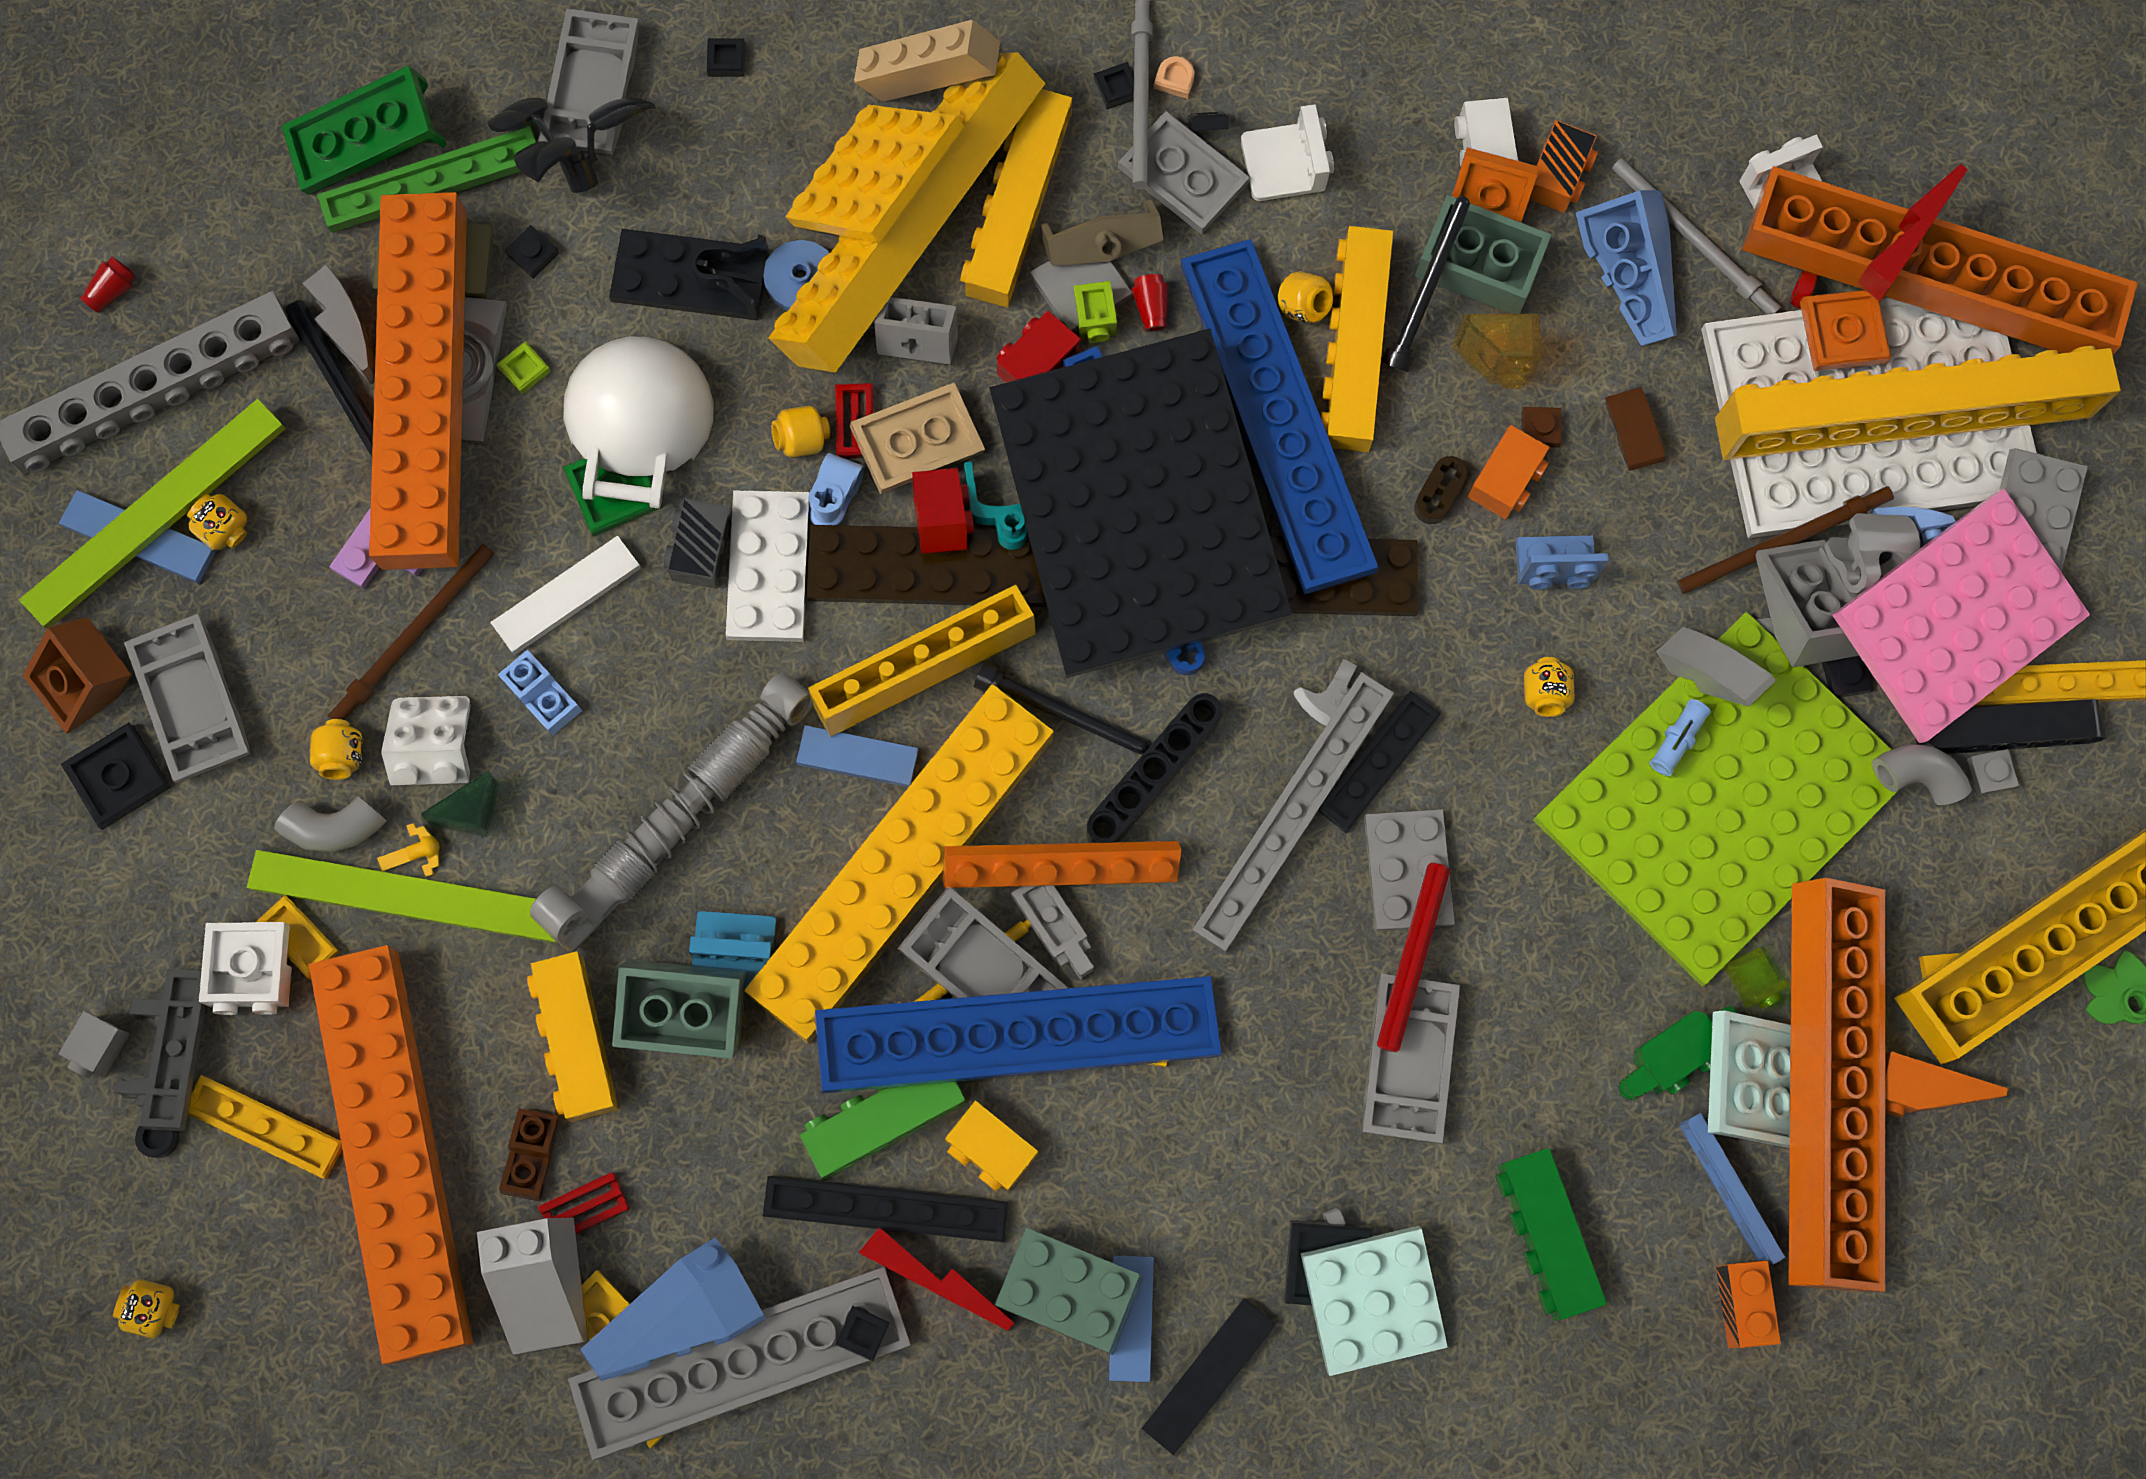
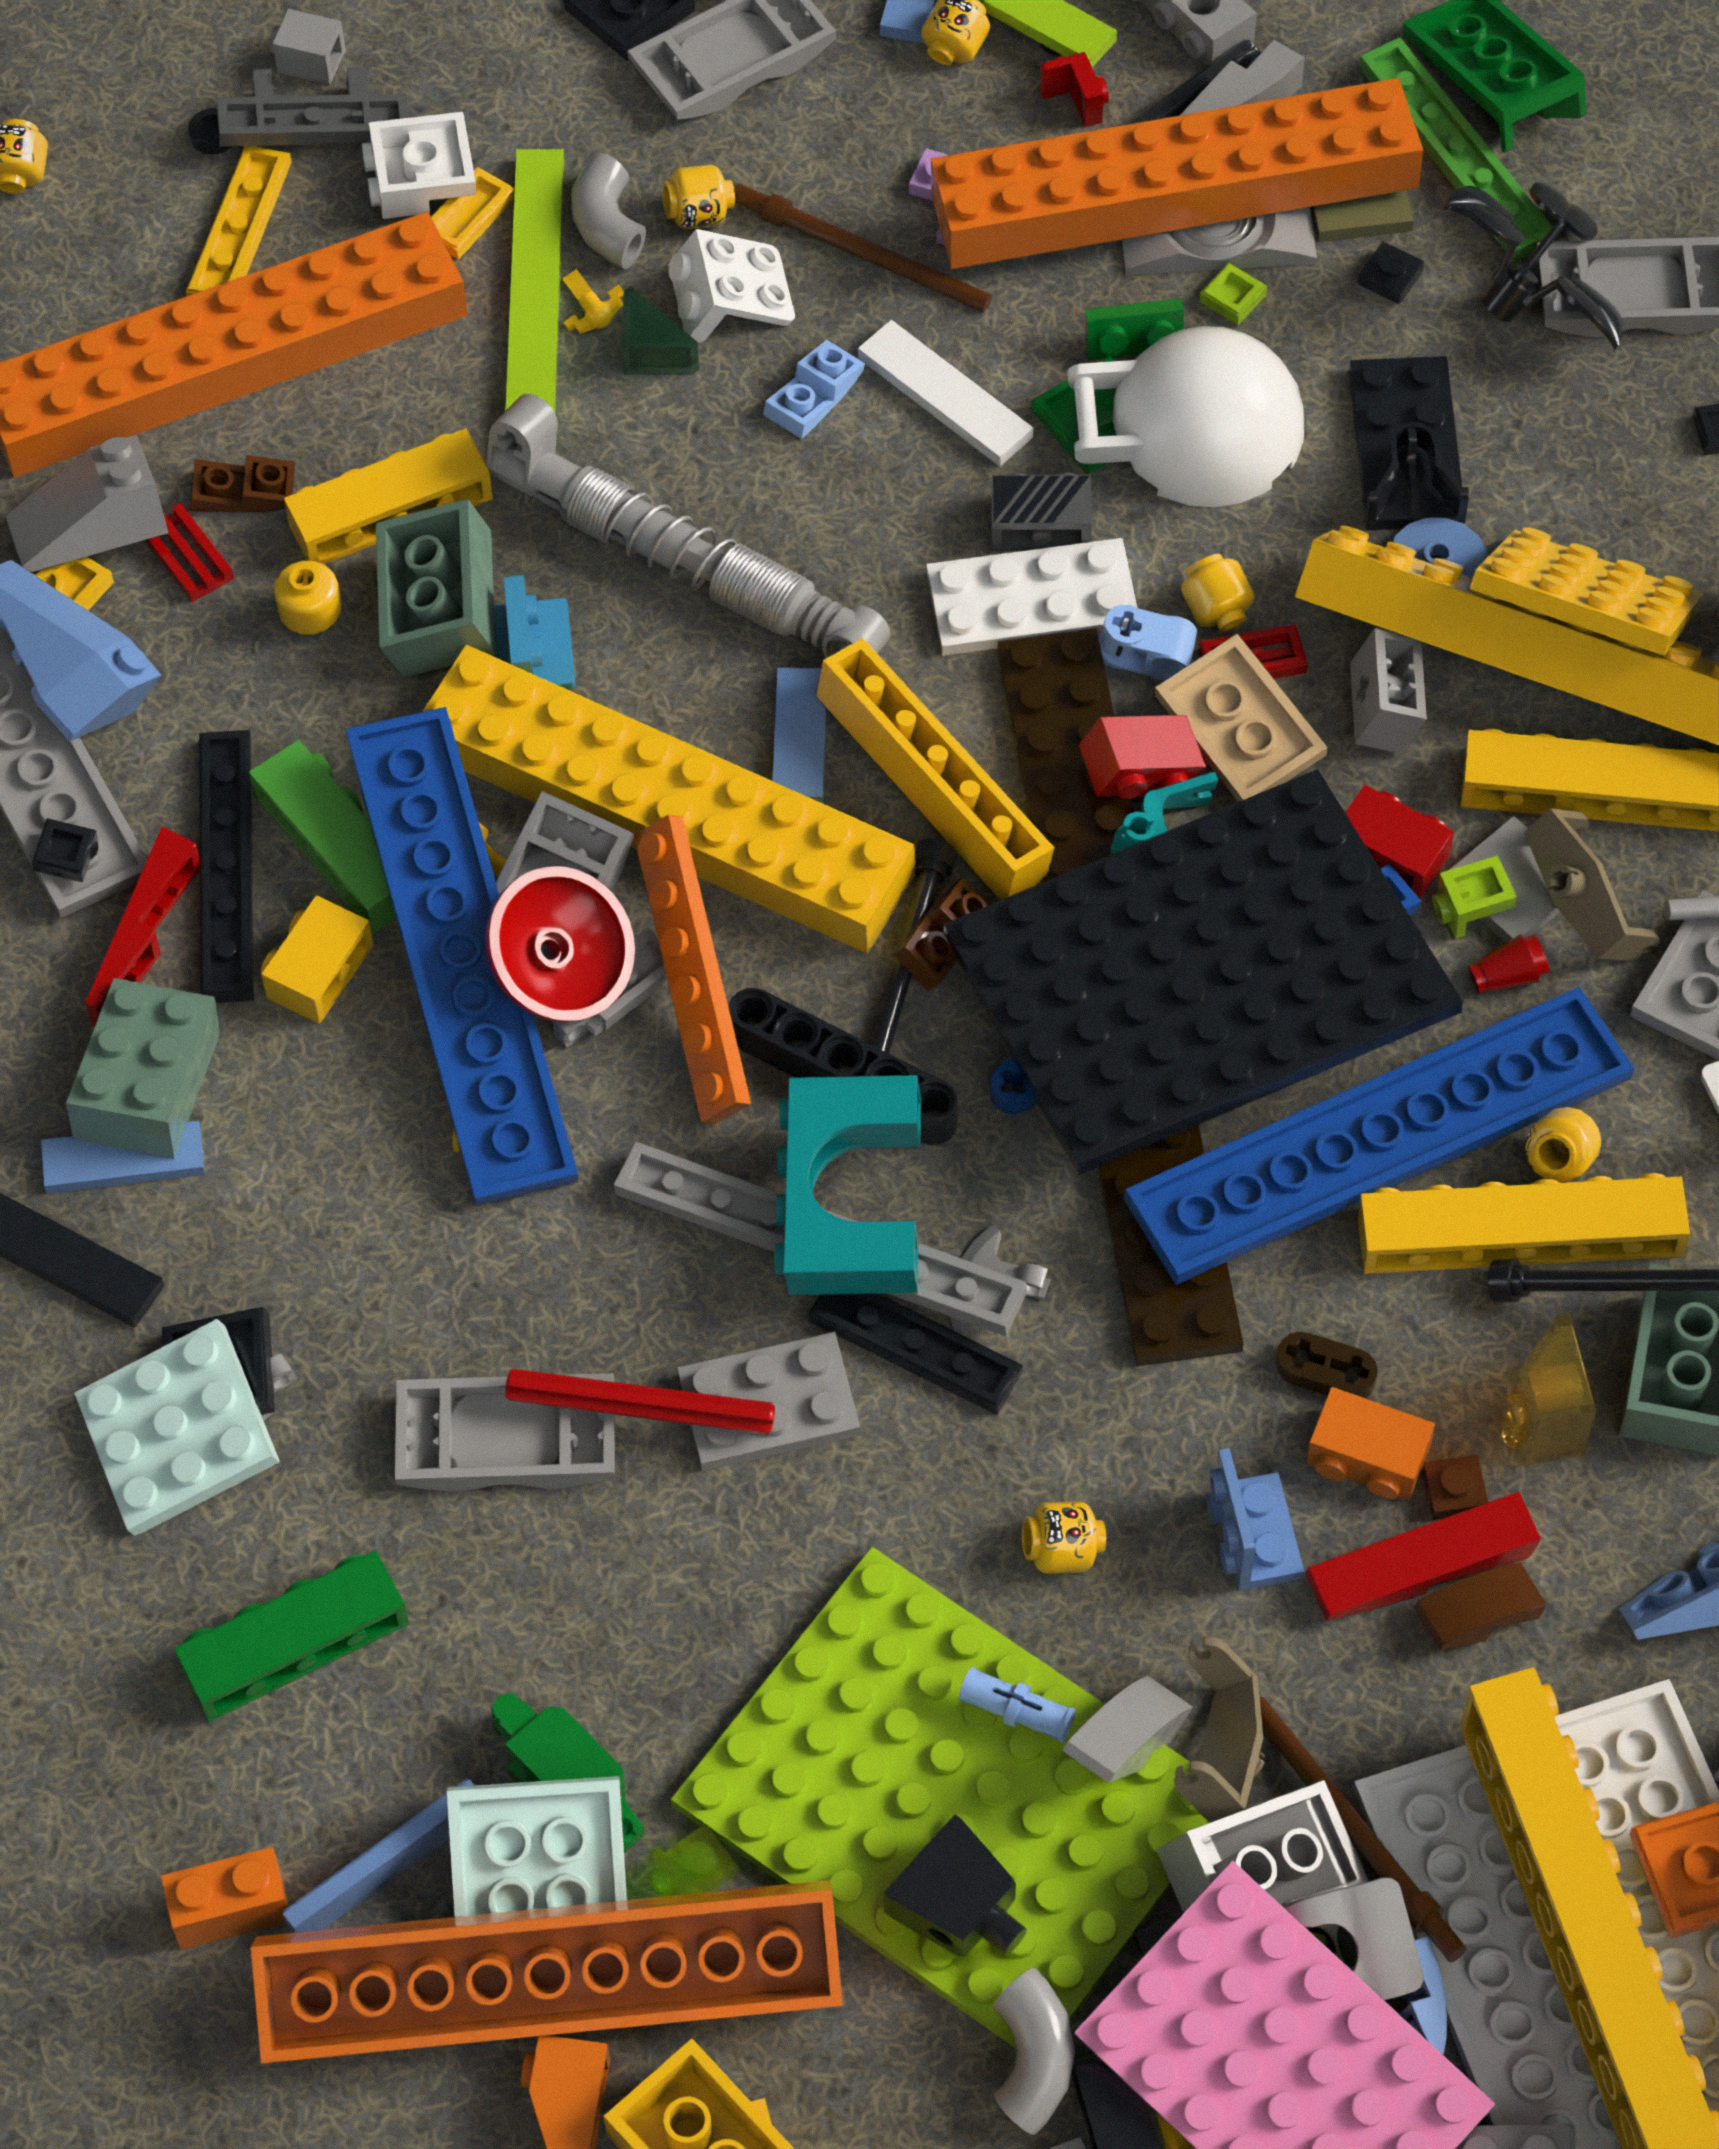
camera: 85 degrees right, 15 degrees down
(302, 435) = (1075, 76): none -> red bracket
(545, 443) = (1130, 327): none -> green plate
(664, 1125) = (307, 597): none -> yellow head
(1047, 676) = (925, 948): none -> reddish brown slope
(1047, 944) = (582, 928): none -> red dish
(1219, 791) = (822, 1123): none -> teal arch
(1596, 456) = (1425, 1556): none -> red slope
(1720, 606) = (1231, 1738): none -> dark tan piece
(1813, 801) = (956, 1894): none -> black torso

